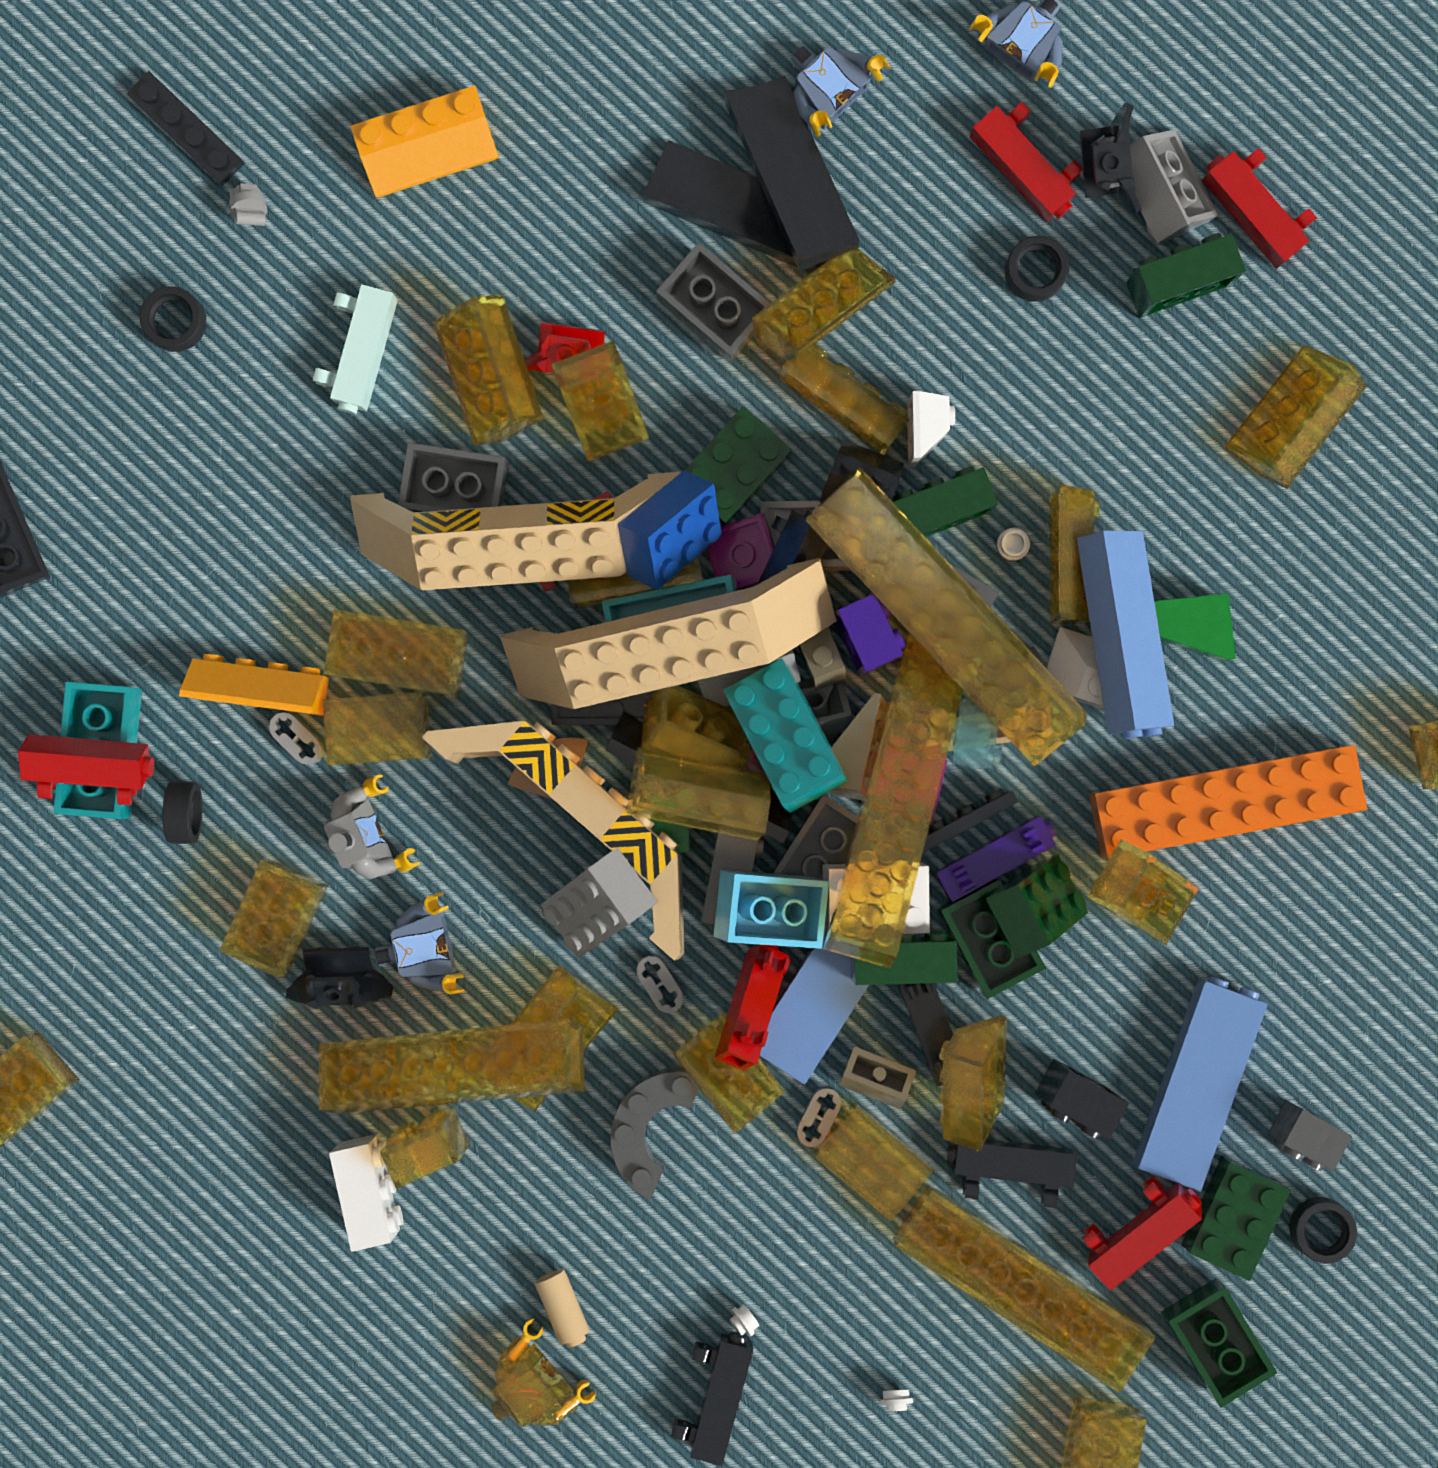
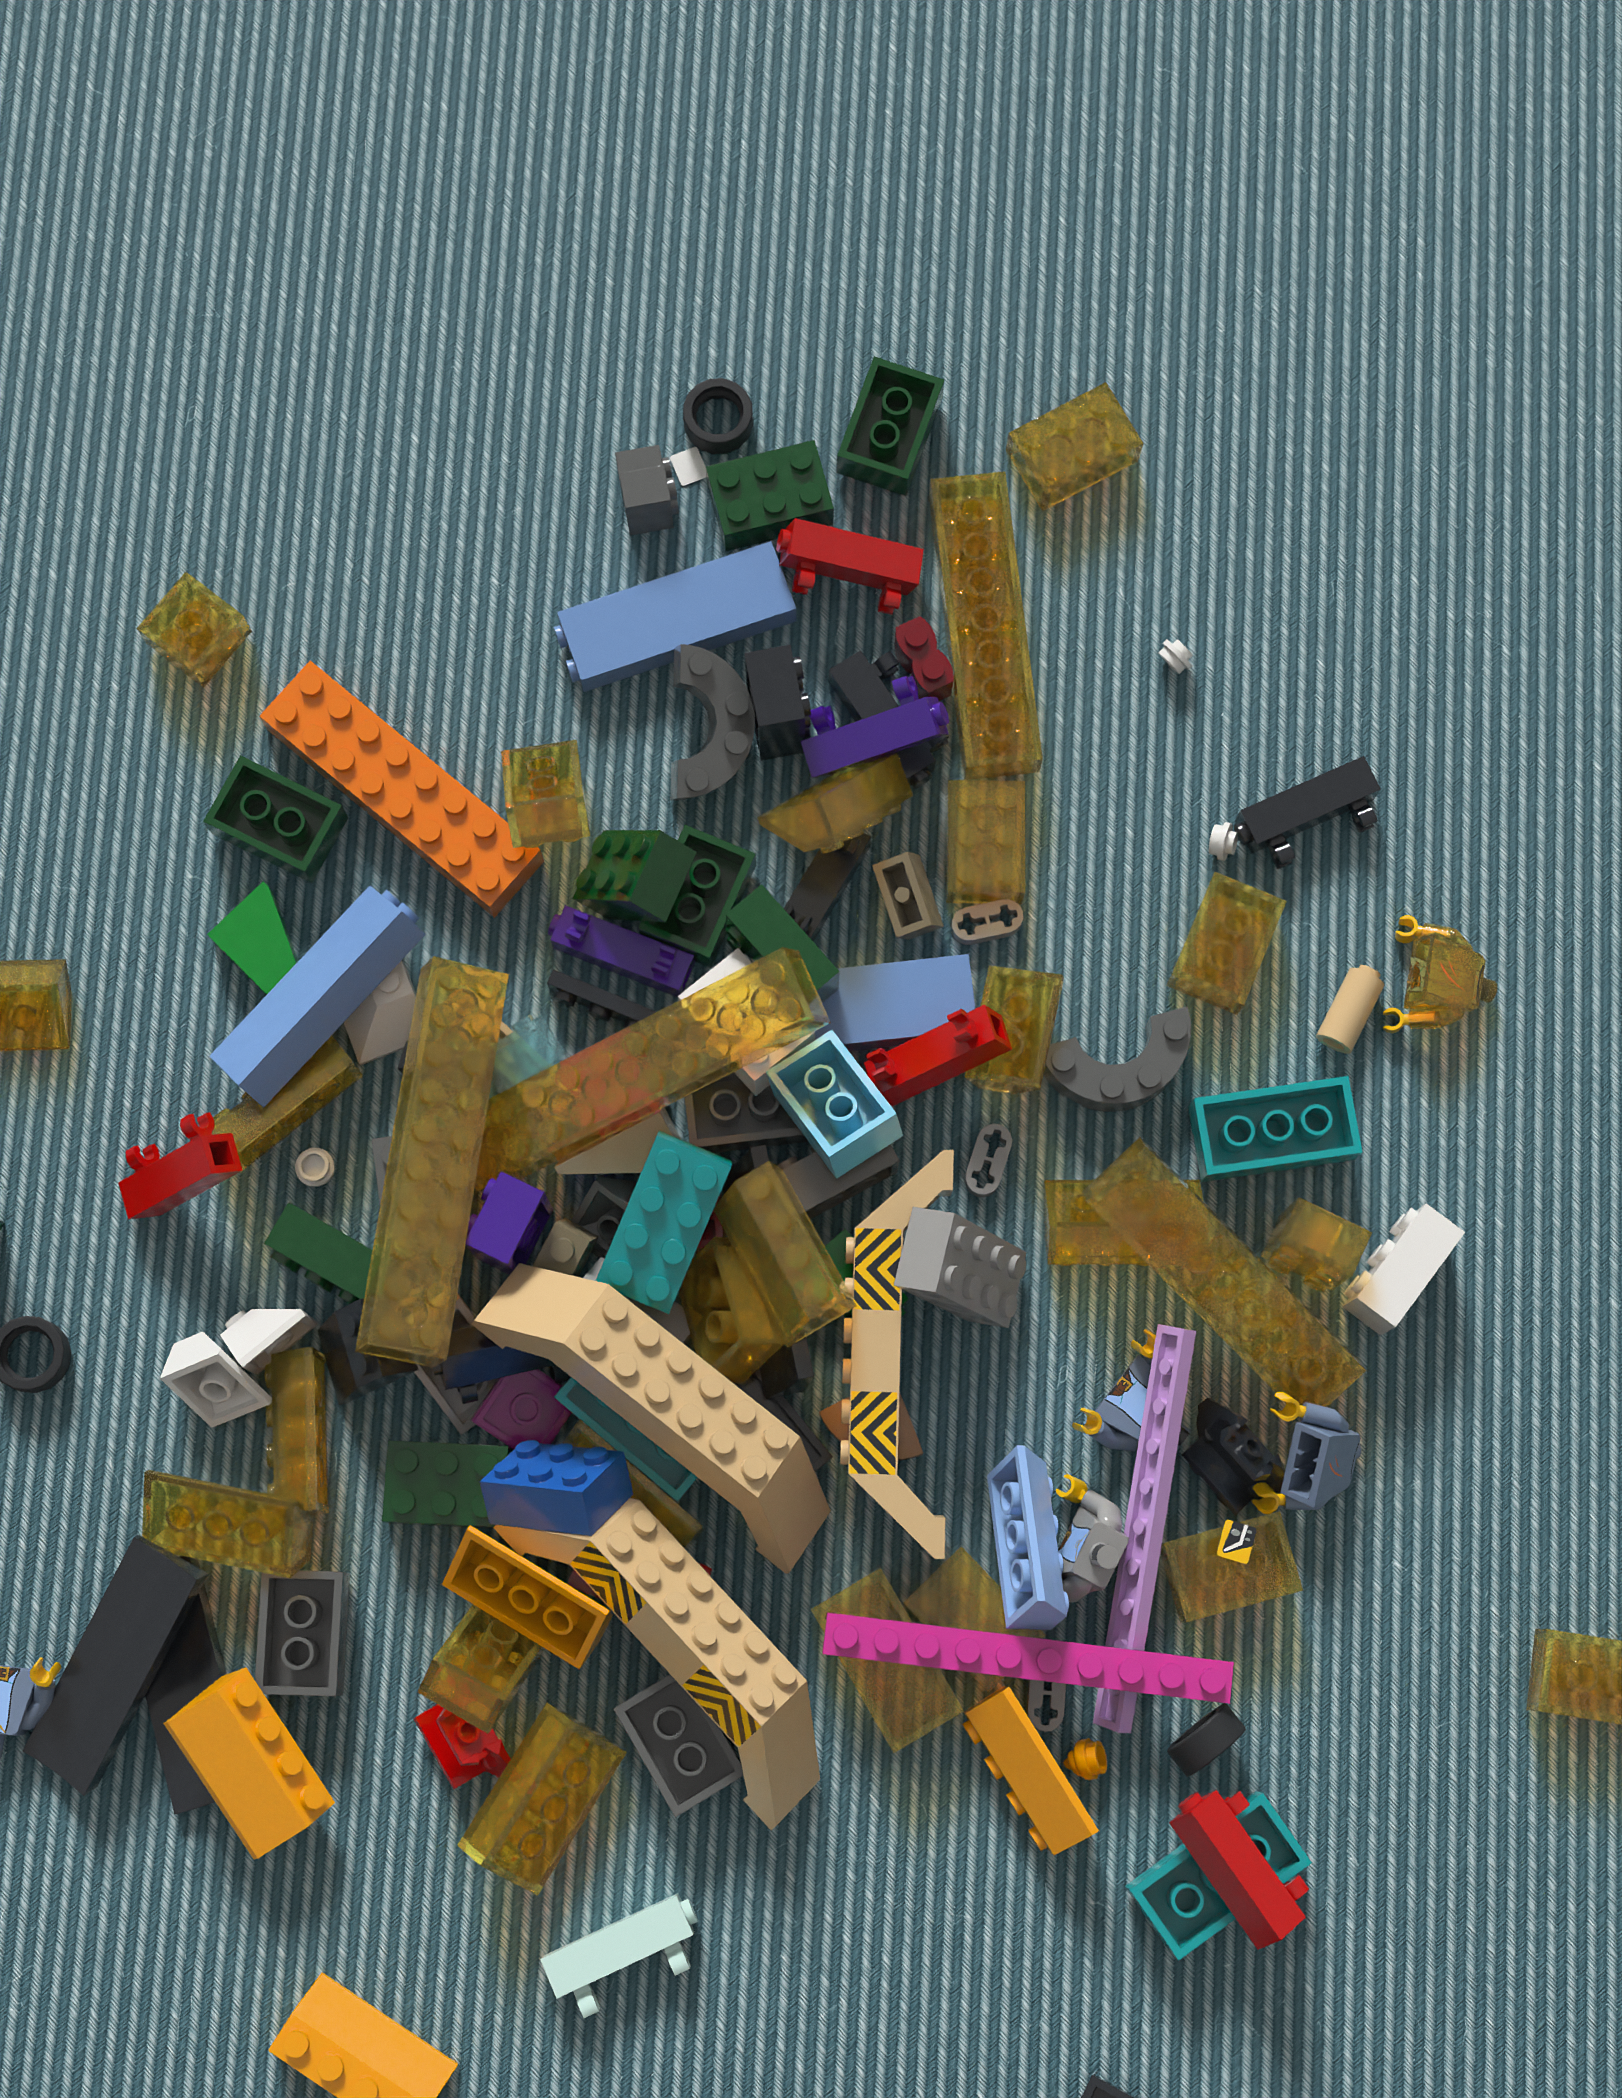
camera: 130 degrees left, 10 degrees down
(234, 729) = (1087, 1759): none -> light orange plate
(283, 934) = (1236, 1541): none -> sticker
(290, 1029) = (1318, 1459): none -> sand blue torso
(321, 741) = (1028, 1658): none -> dark pink plate
(342, 886) = (1147, 1512): none -> lavender plate
(393, 801) = (1027, 1542): none -> light blue slope
(524, 1188) = (1274, 1129): none -> teal brick
(619, 457) = (526, 1598): none -> light orange slope
(658, 205) = (249, 1762): none -> light orange slope
(672, 1263) = (1226, 943): none -> clear yellow brick
(925, 368) = (211, 1381): none -> white slope
(1002, 1146) = (874, 736): none -> dark purple brick
(1024, 1224) = (918, 655): none -> dark red brick
(1075, 449) = (180, 1175): none -> red brick
(1091, 1055) = (729, 719): none -> dark grey brick
(1273, 701) = (276, 819): none -> dark green brick
(1303, 1180) = (689, 466): none -> white sticker

